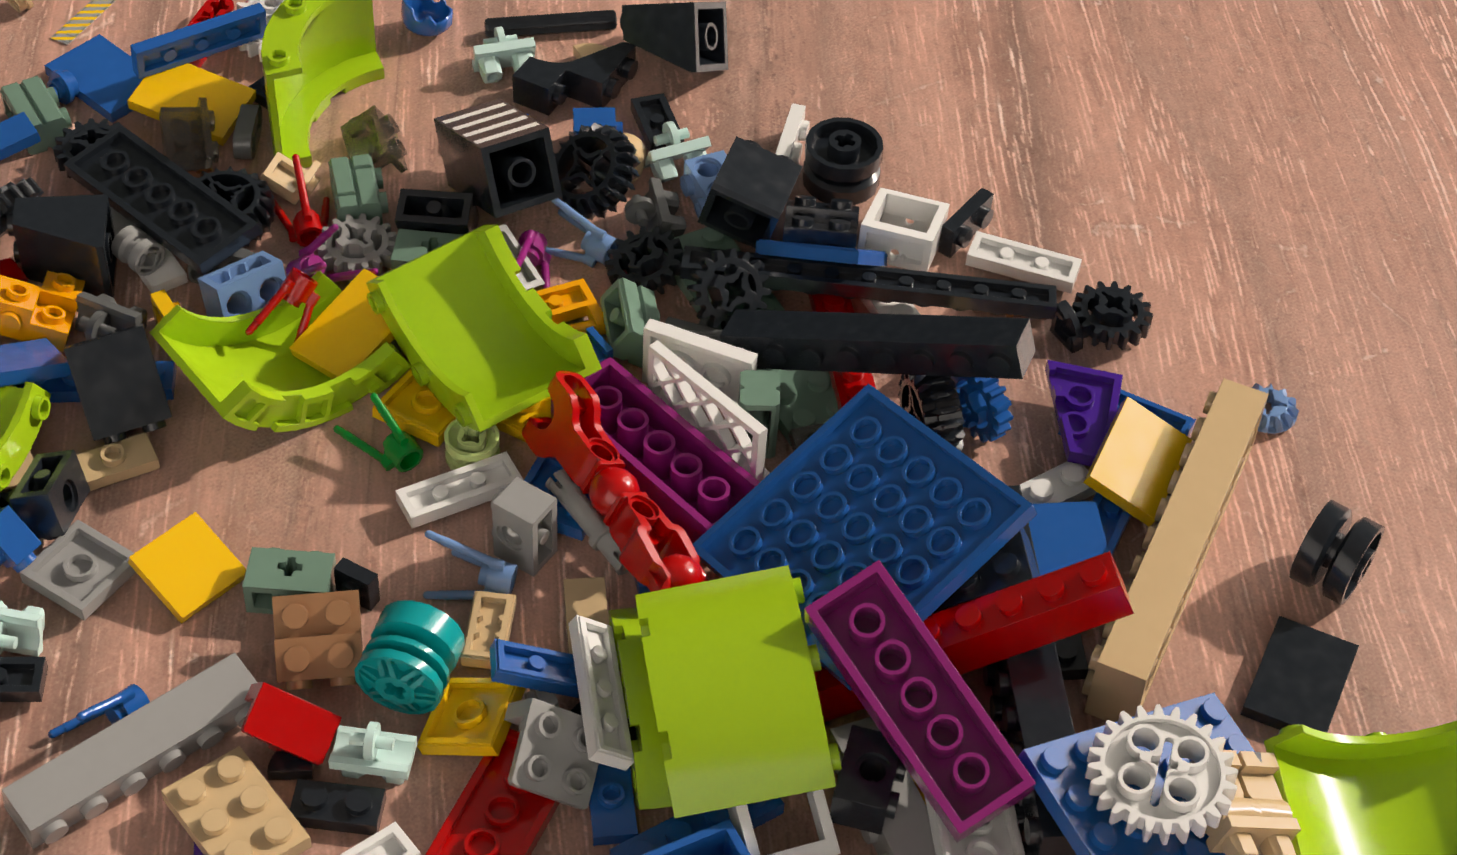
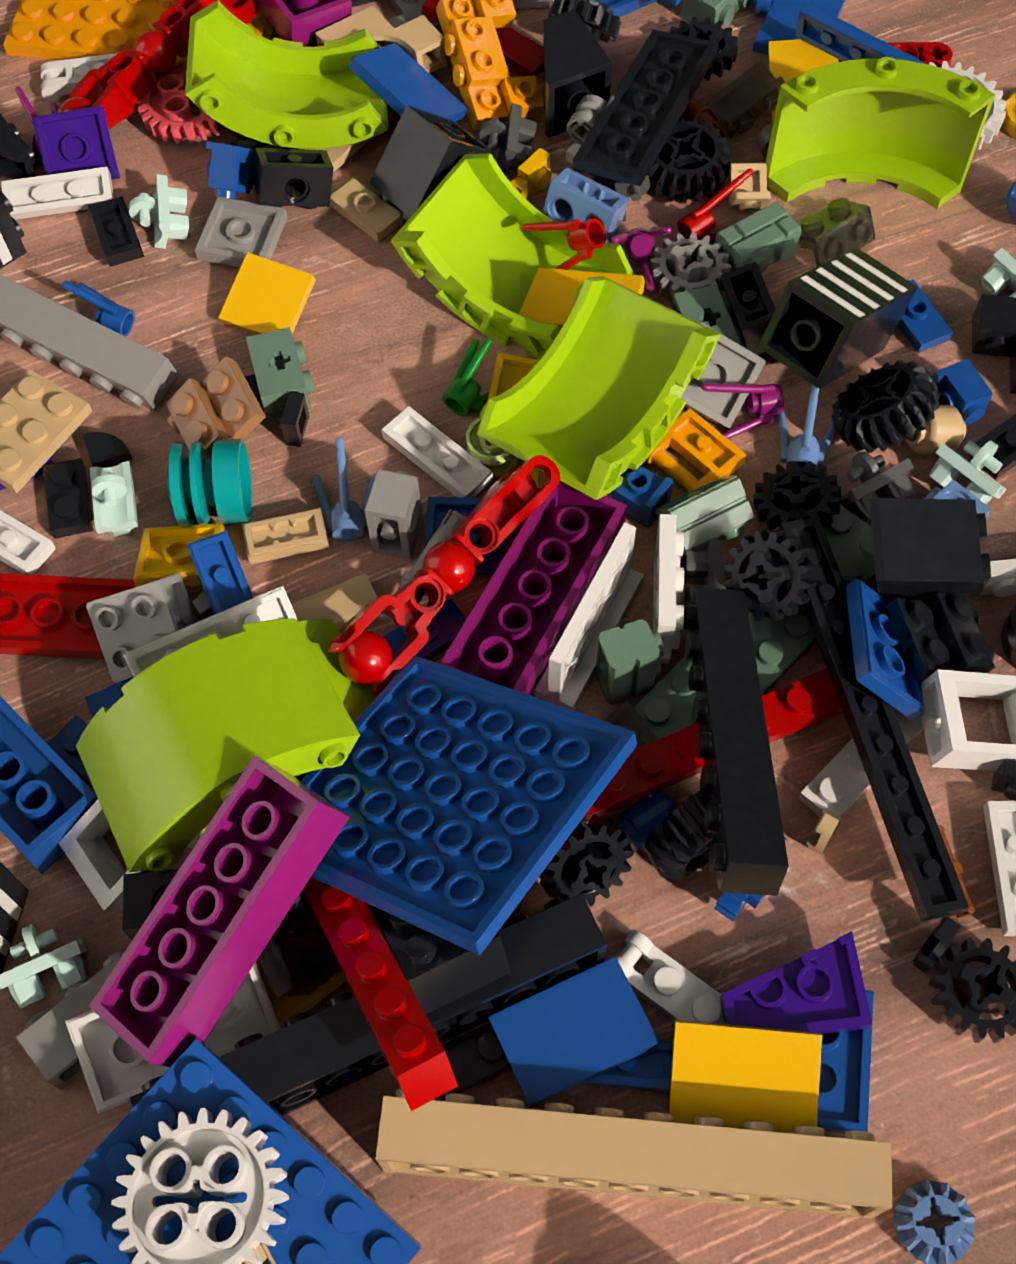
camera: 75 degrees right, 15 degrees up
(289, 723) = (117, 423): red panel -> none

